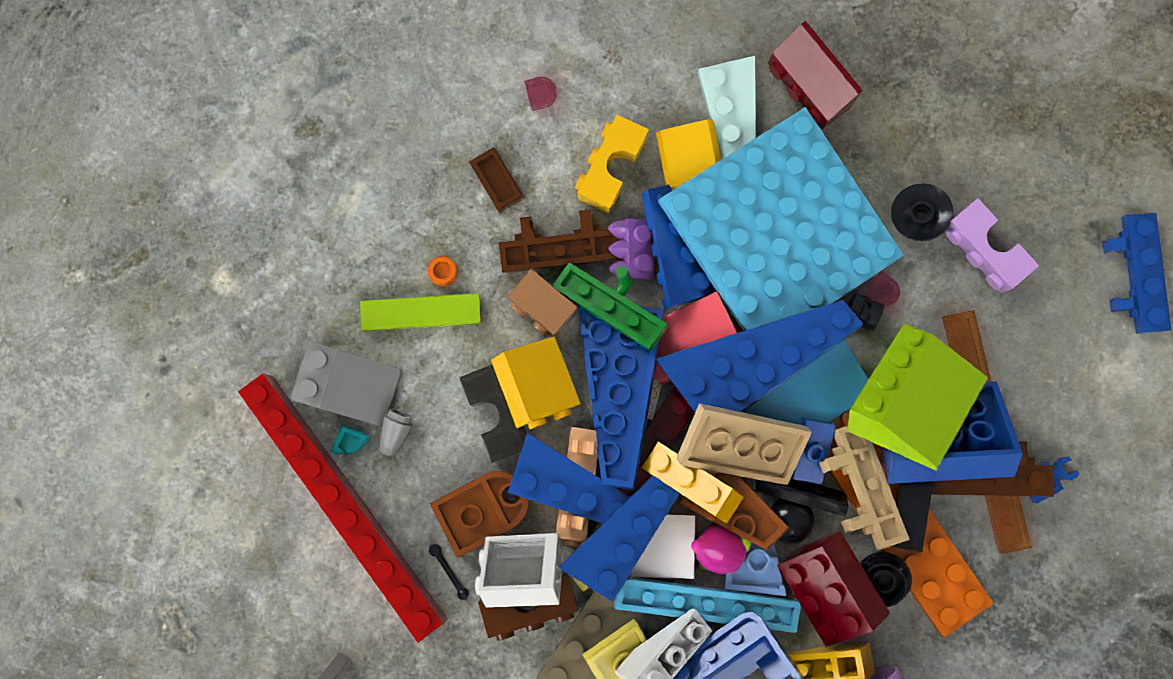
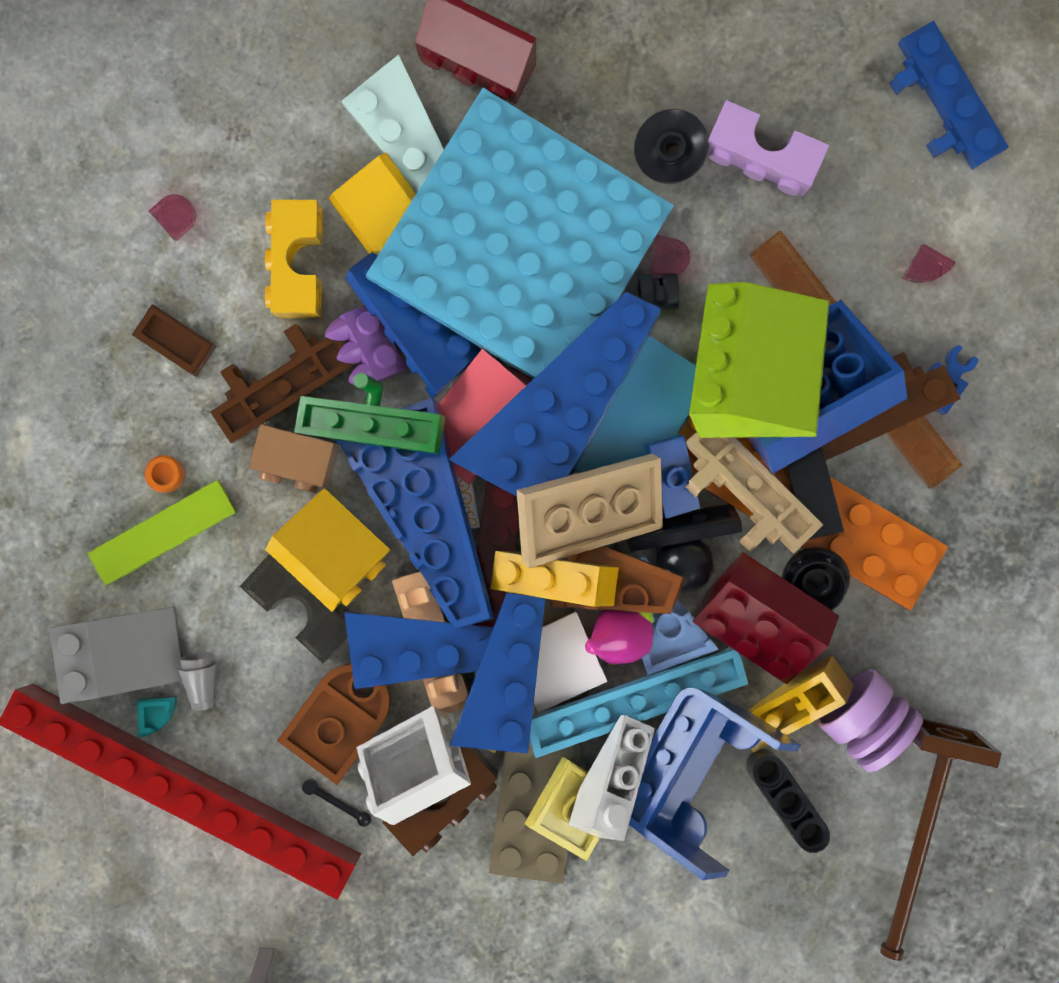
camera: 30 degrees left, 5 degrees up
(1071, 388) = (927, 265): none -> clear pink tile

